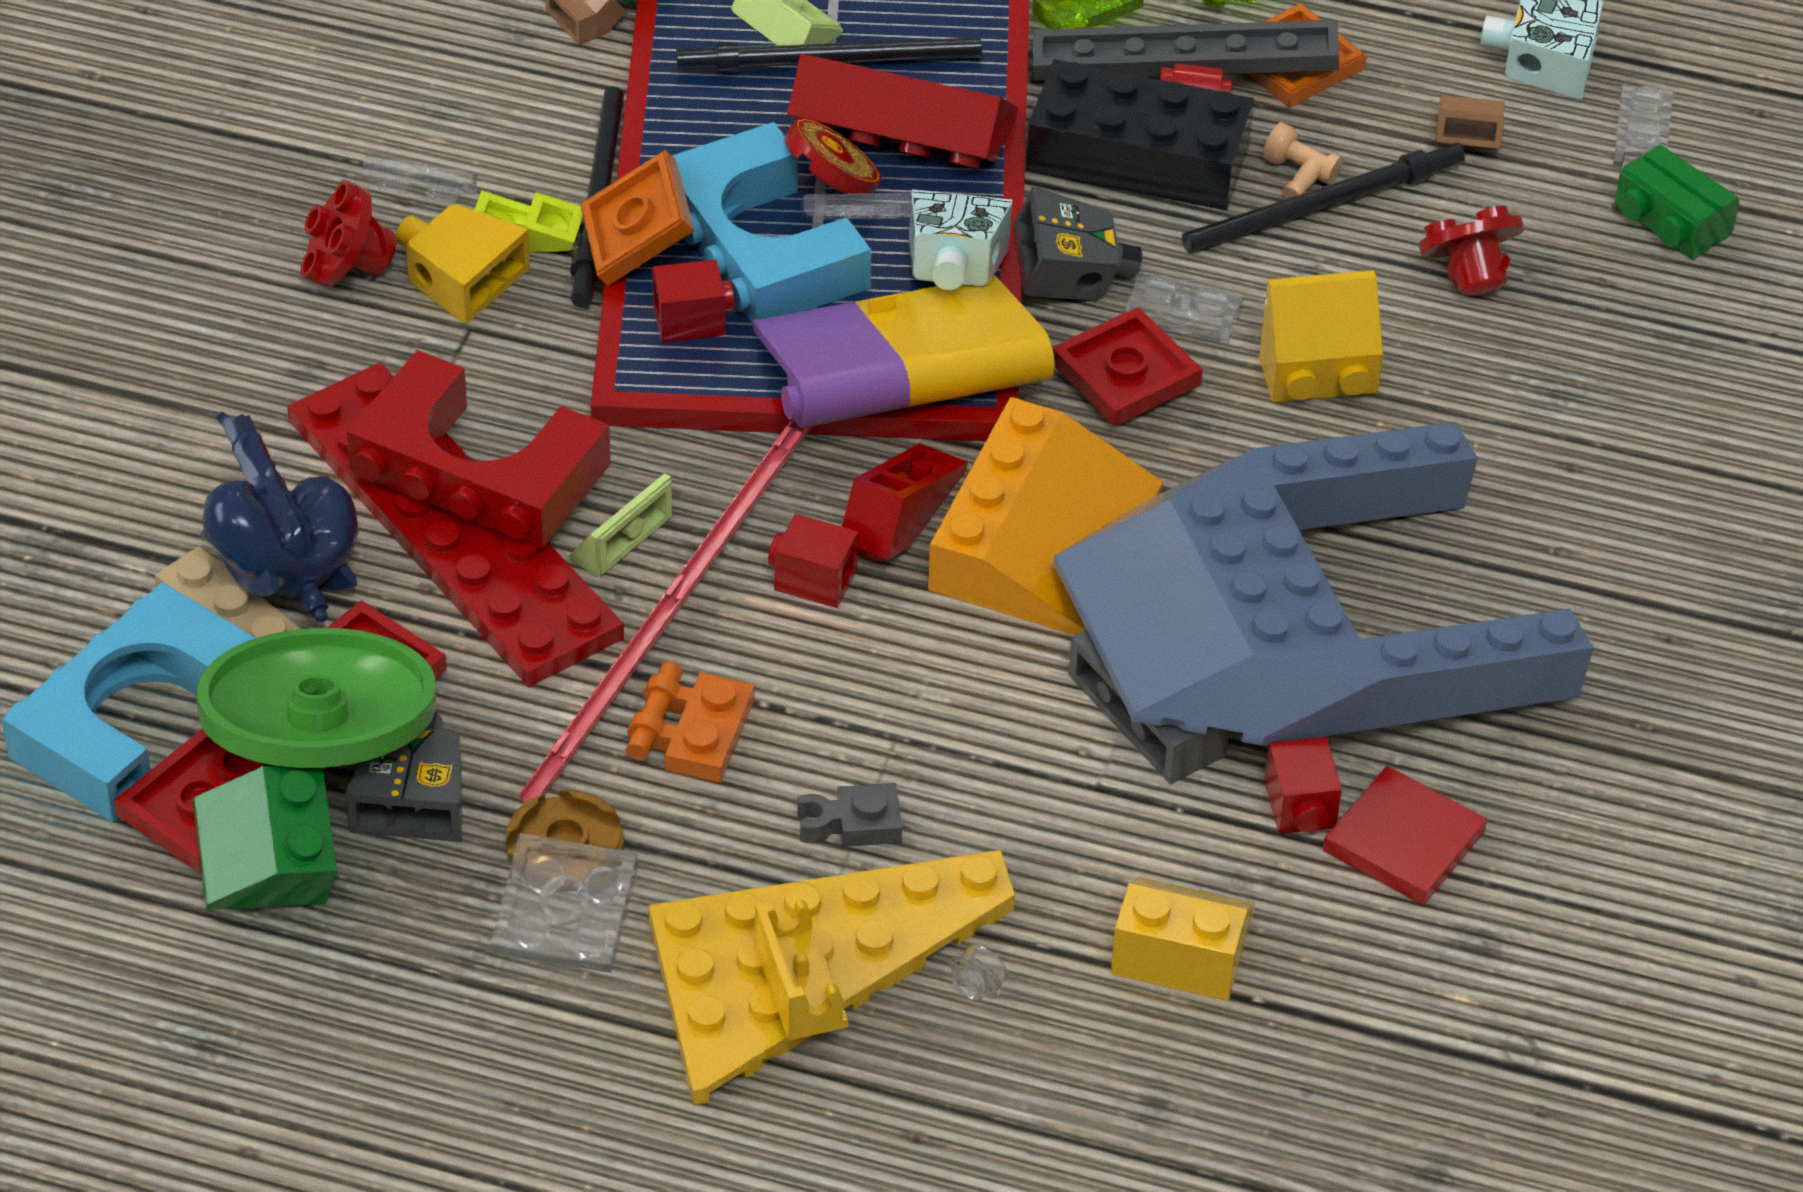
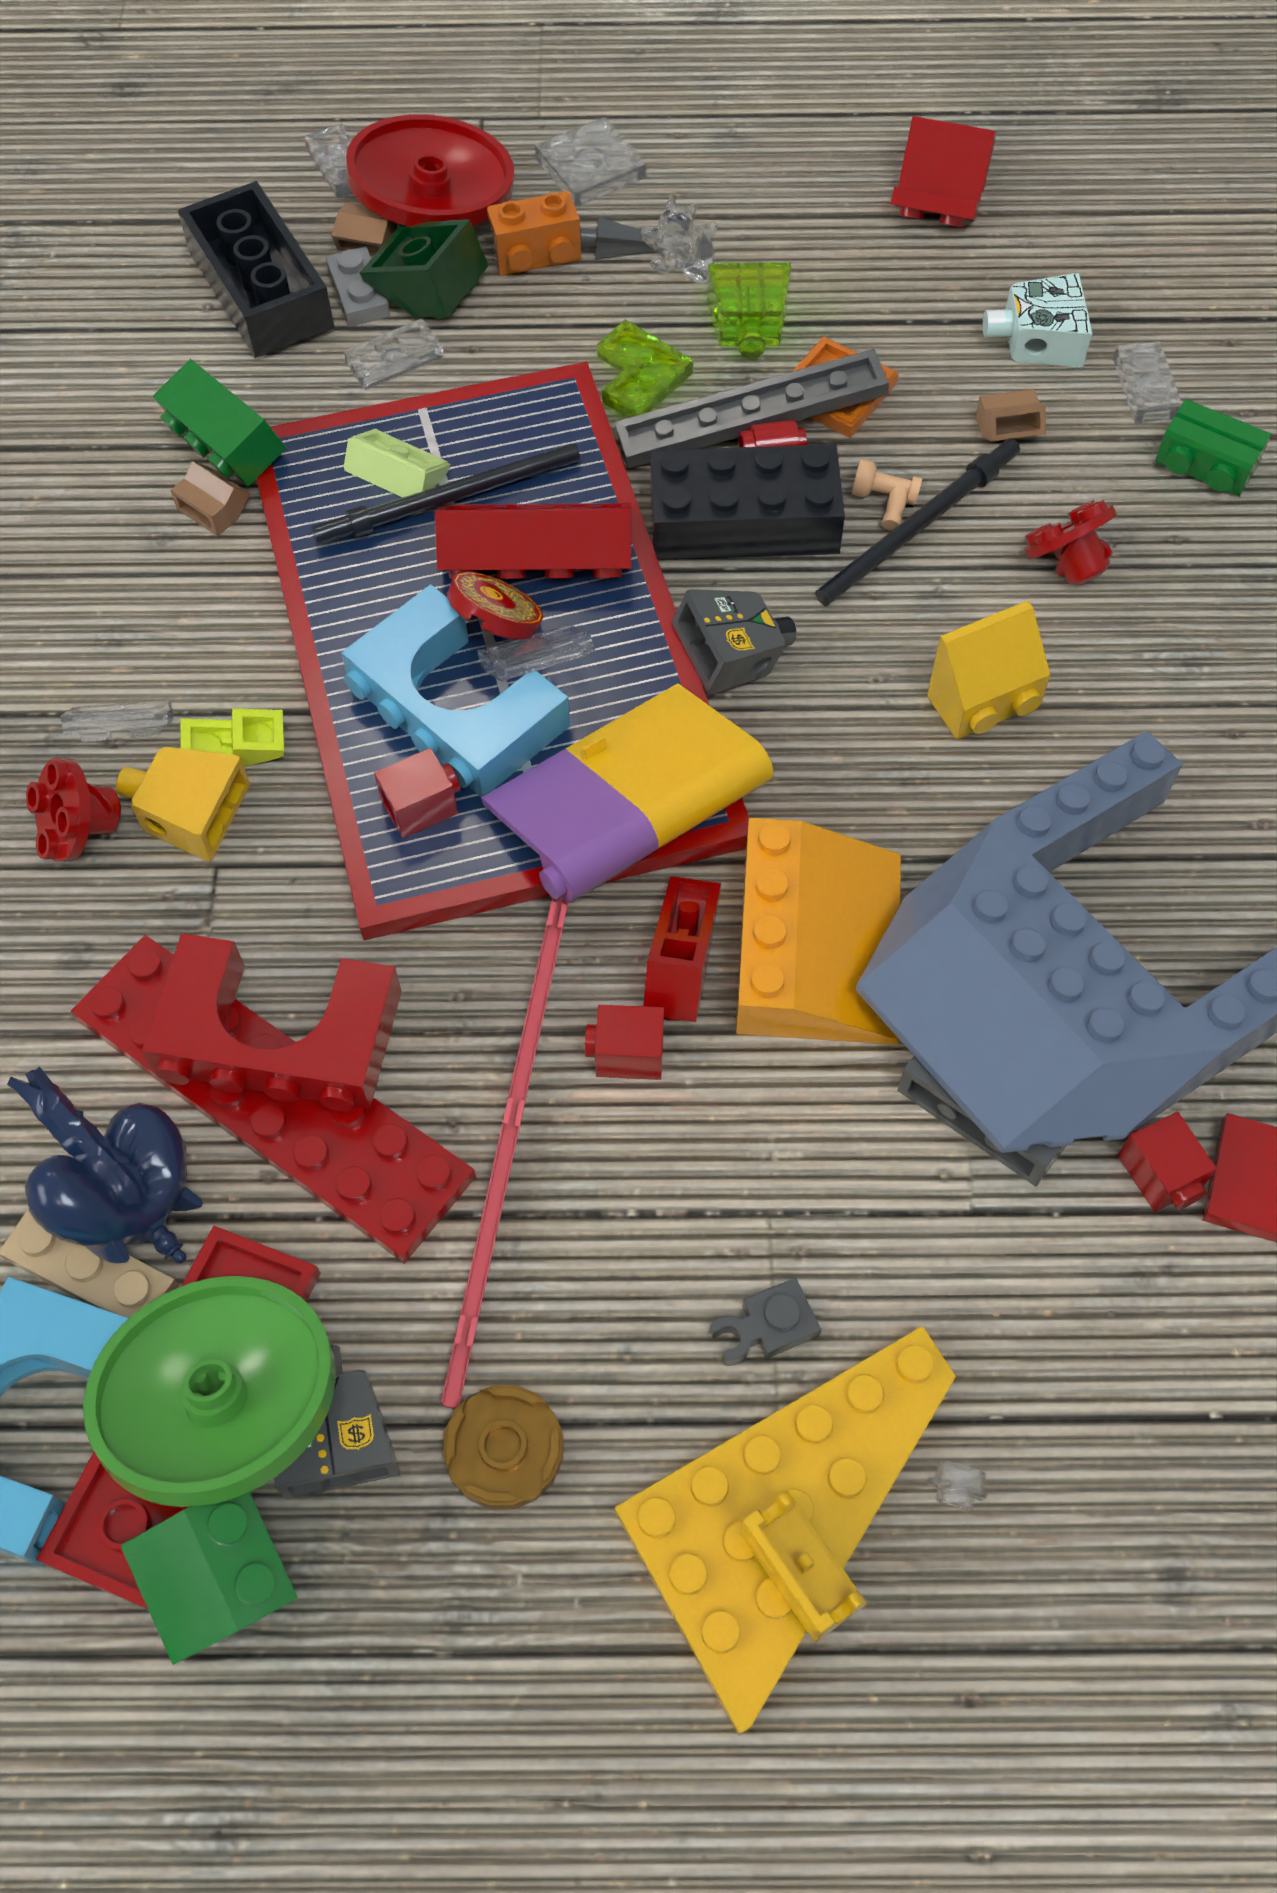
camera: 15 degrees left, 15 degrees up
(565, 903) = (535, 1541): clear plate -> none
(582, 260) = (301, 764): black bar -> none
(626, 528) = (435, 1054): yellowish green slope -> none
(637, 217) = (339, 718): orange plate -> none
(708, 725) = (593, 1262): orange plate -> none
(958, 237) = (634, 660): light aqua torso -> none
(1126, 366) = (825, 743): red plate -> none
(1180, 937) = (1129, 1368): yellow slope -> none
(1187, 306) = (846, 664): clear plate -> none

